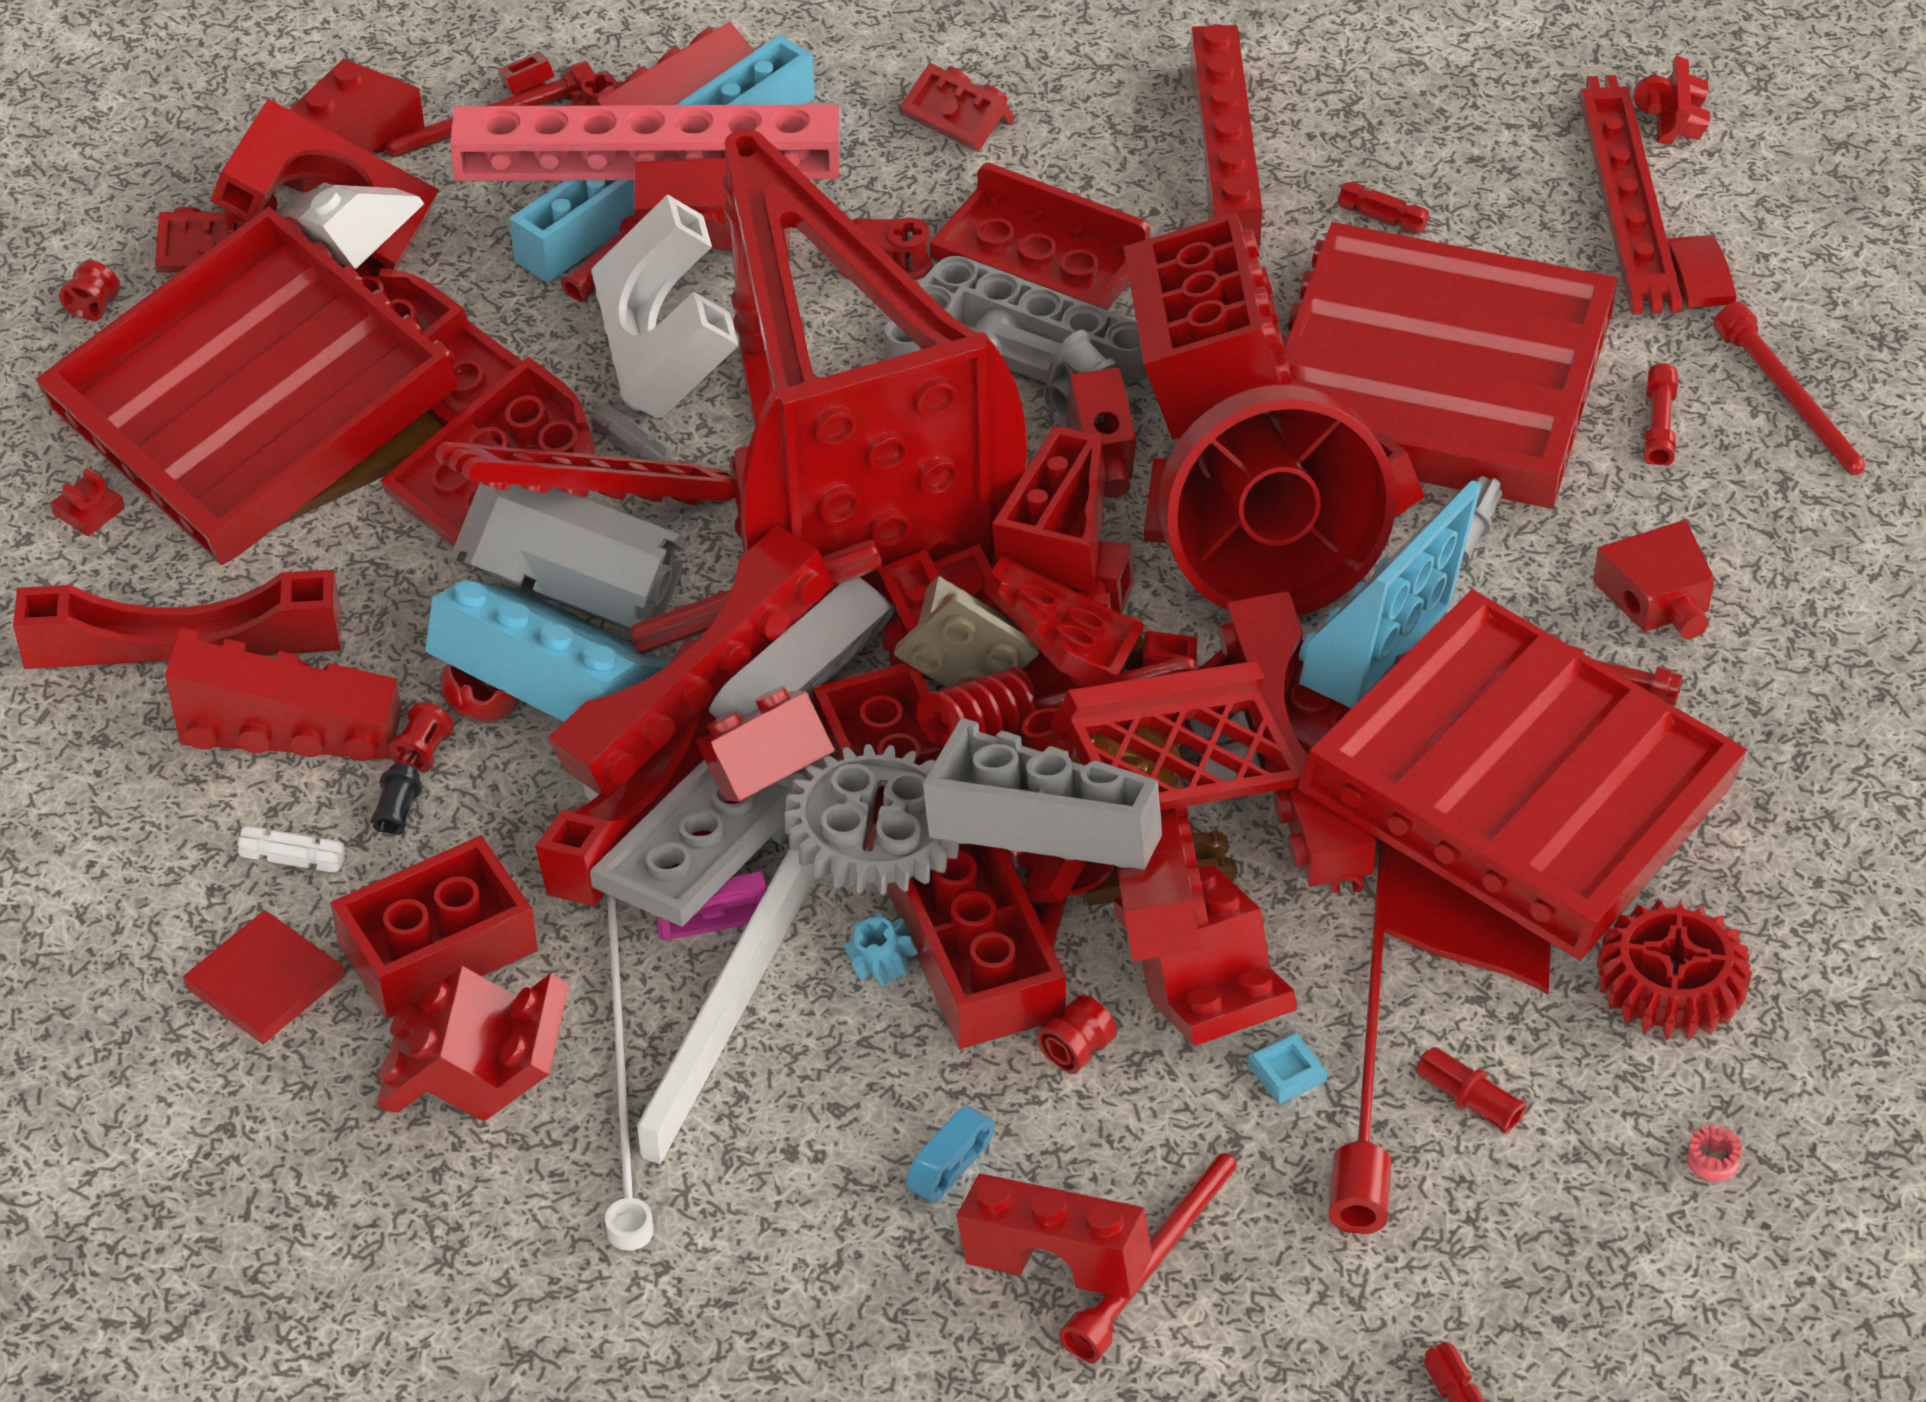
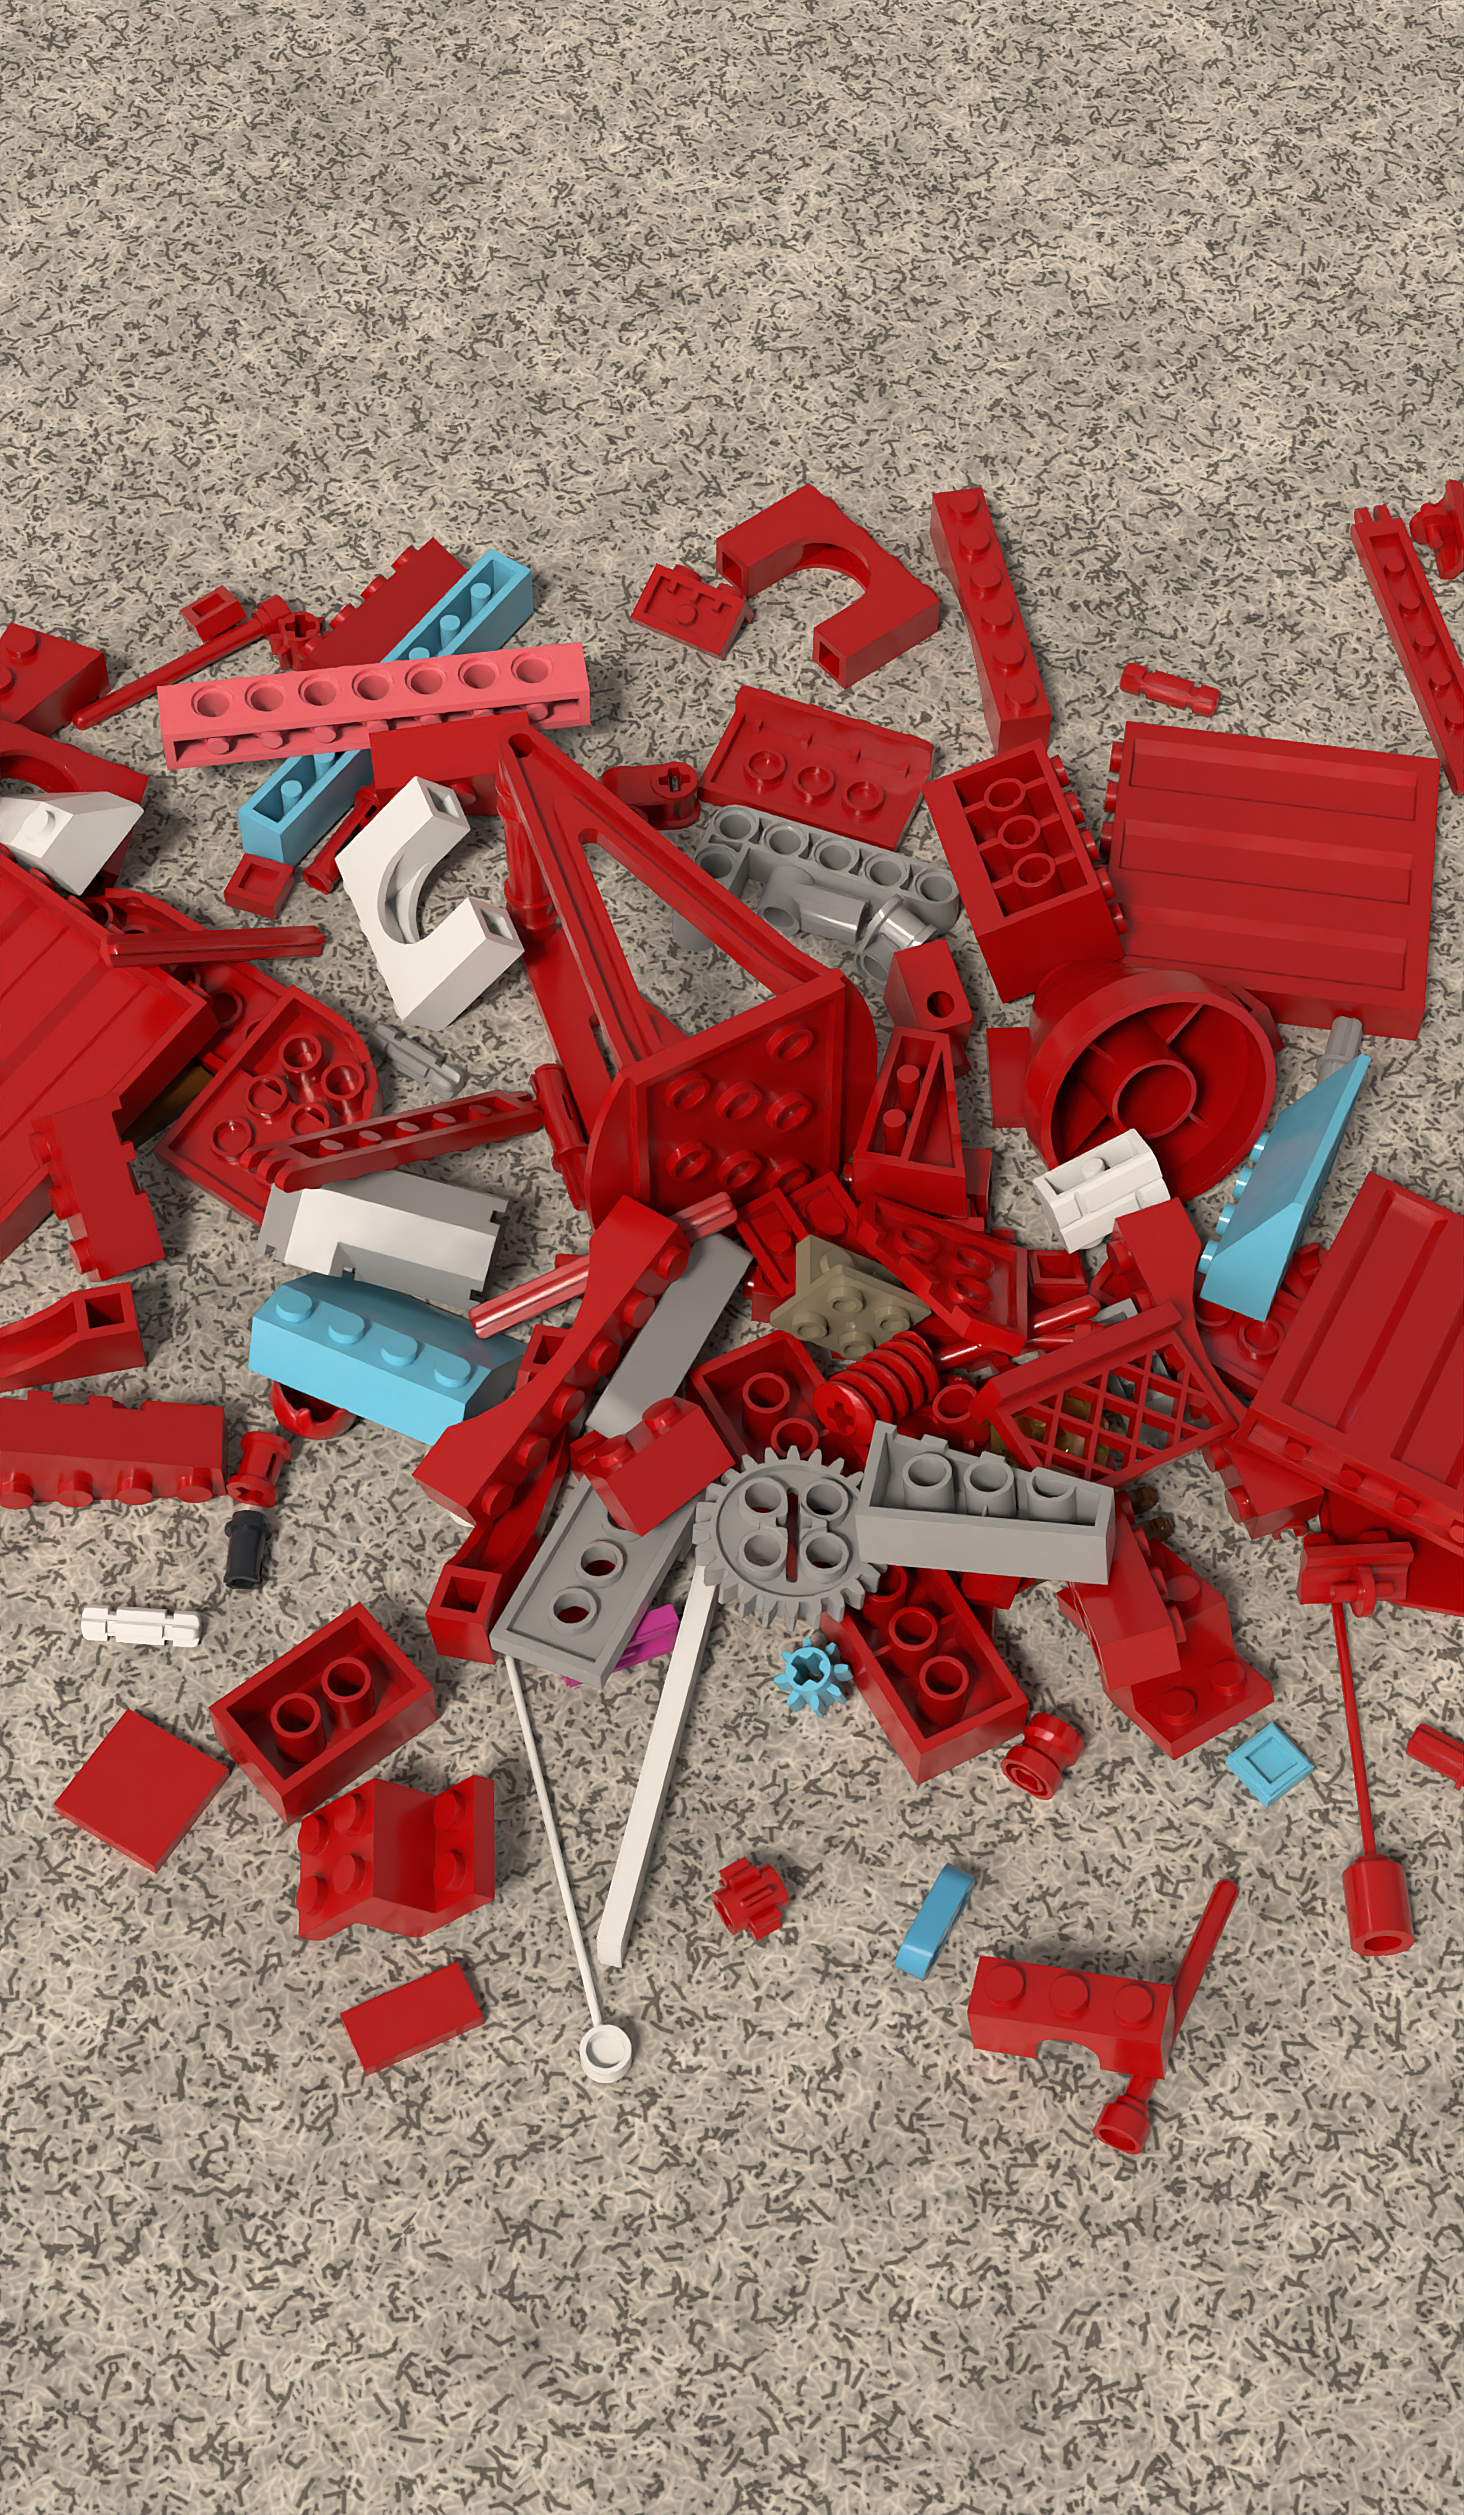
camera: 10 degrees left, 10 degrees up
(320, 490) = (96, 1189): none -> red wedge
(462, 317) = (210, 946): none -> red axle
(463, 1179) = (412, 2018): none -> red tile
(521, 287) = (259, 886): none -> red plate
(785, 1115) = (750, 1898): none -> red gear
(1079, 53) = (813, 533): none -> red arch
(1218, 574) = (1098, 1187): none -> white brick
(1393, 914) = (1354, 1572): none -> red hips

